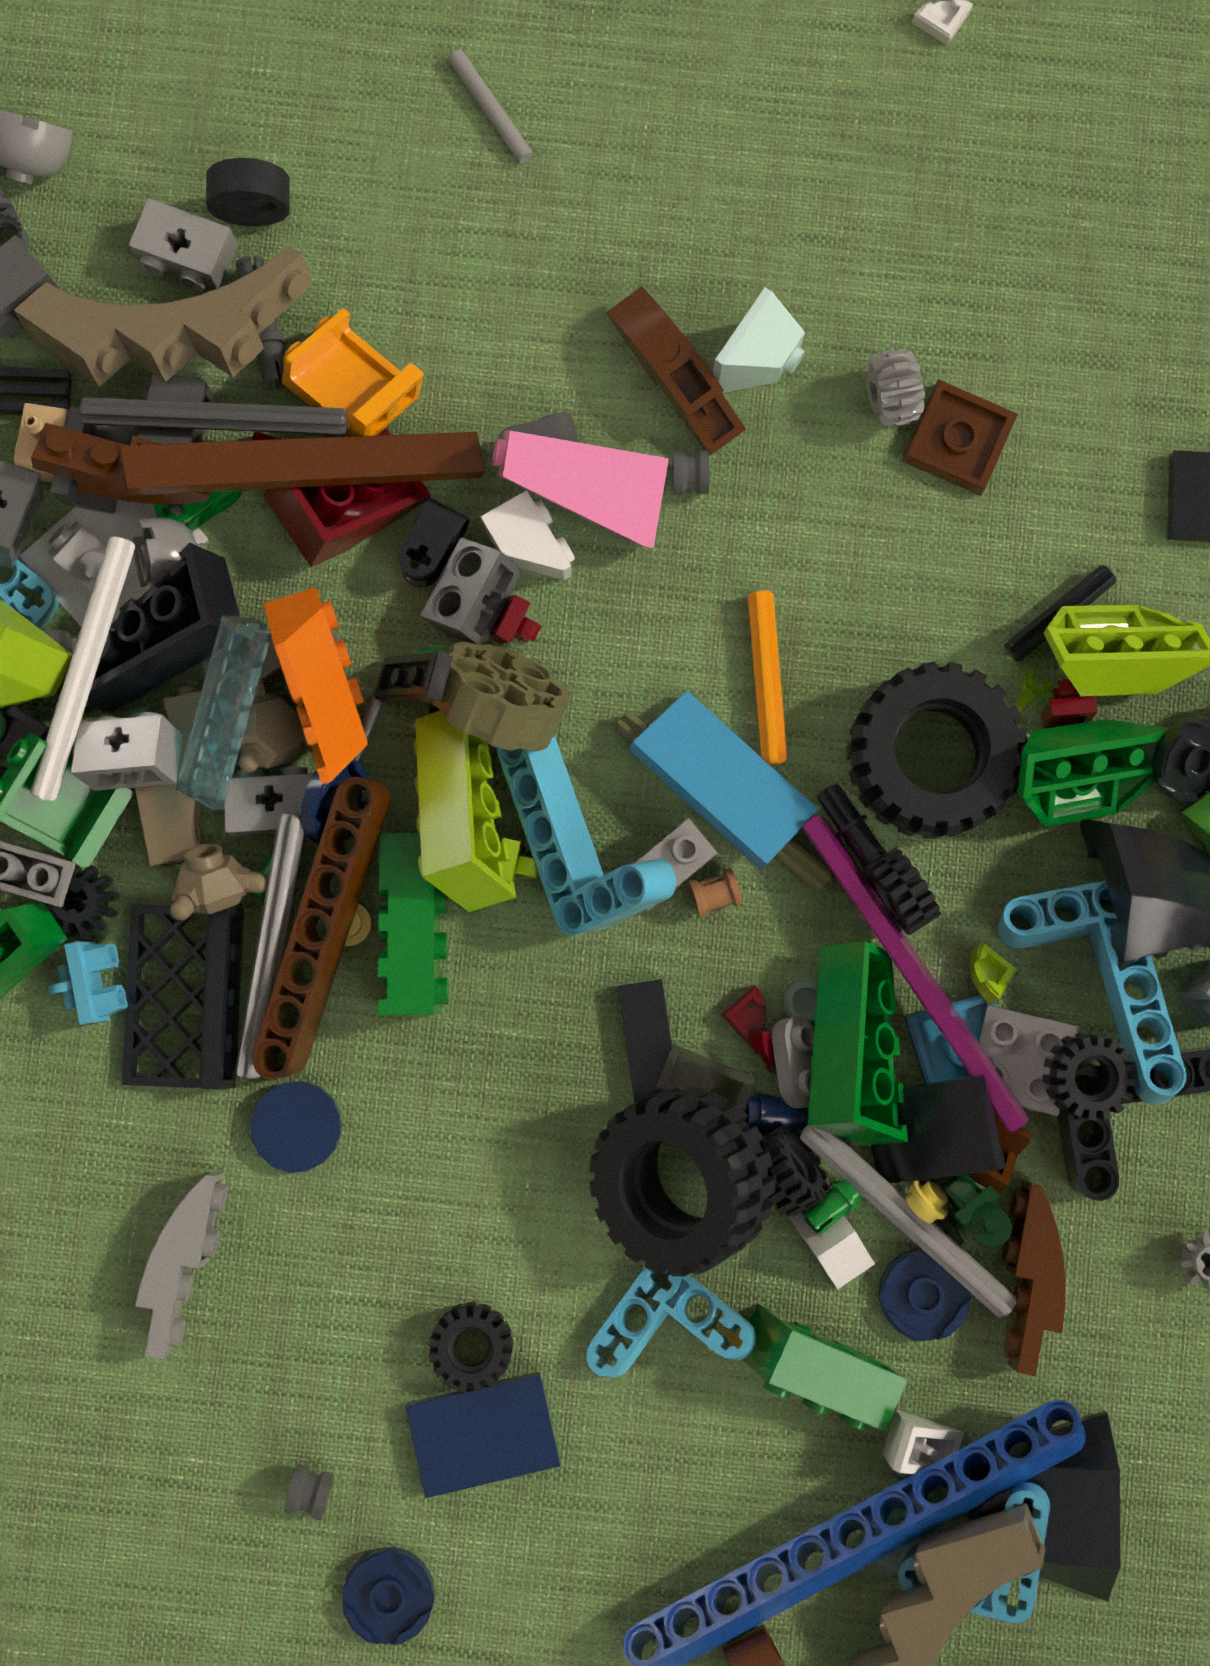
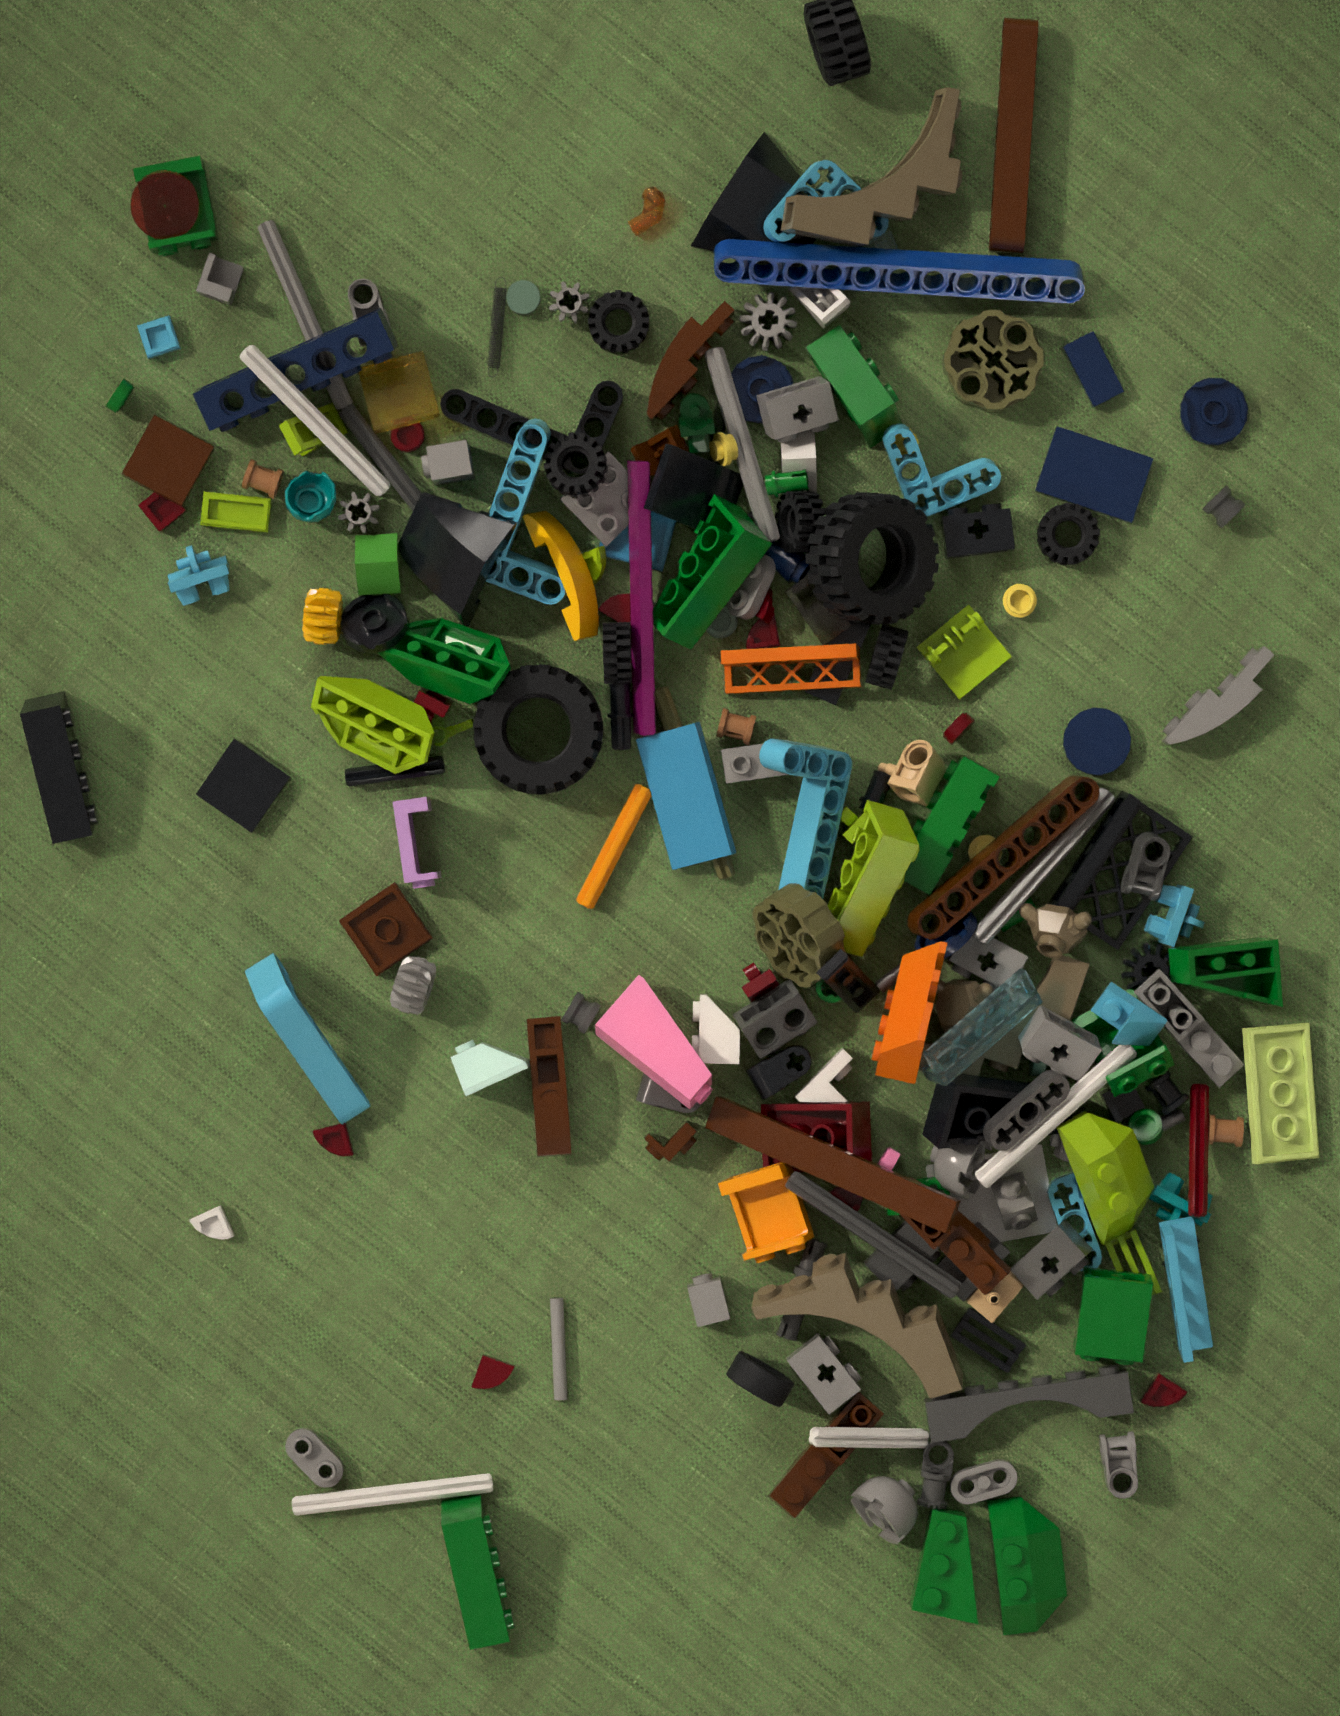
camera: 145 degrees left, 5 degrees up
(57, 831) = (1130, 1016): none -> medium azure slope
(88, 195) = (868, 1437): none -> white axle
(100, 661) = (1012, 1109): none -> flat silver beam
(131, 157) = (819, 1463): none -> reddish brown slope
(149, 1008) = (1146, 869): none -> dark grey piece
(251, 512) = (889, 1158): none -> bright pink tile
(358, 247) = (708, 1300): none -> light grey brick
(375, 550) = (819, 1088): none -> white slope
(462, 1044) = (958, 728): none -> dark red tile
(481, 1234) = (1019, 600): none -> light yellow plate
(484, 955) = (915, 773): none -> tan piece
(494, 399) = (680, 1141): none -> reddish brown bracket
(509, 1136) = (964, 651): none -> lime hinge
(512, 919) = (877, 789): none -> black pin
(547, 38) = (491, 1372): none -> dark red tile
(550, 1289) = (962, 544): none -> black brick
(558, 1559) = (1093, 369): none -> dark blue tile
(593, 1076) = (886, 656): none -> black tyre
(644, 1531) = (1027, 353): none -> olive connector
(704, 1009) = (791, 655): none -> orange fence
(870, 182) = (335, 1139): none -> dark red tile
(896, 1292) = (780, 405): none -> light grey brick
(930, 944) = (617, 608): none -> dark red tile
(950, 1380) = (776, 329): none -> light grey gear
(984, 249) = (304, 1039): none -> medium azure beam
(999, 536) = (407, 842): none -> lavender panel
(1008, 952) = (573, 571): none -> yellow slope
(1162, 1277) = (611, 302): none -> black tyre
(1177, 1426) = (652, 211): none -> clear orange arm

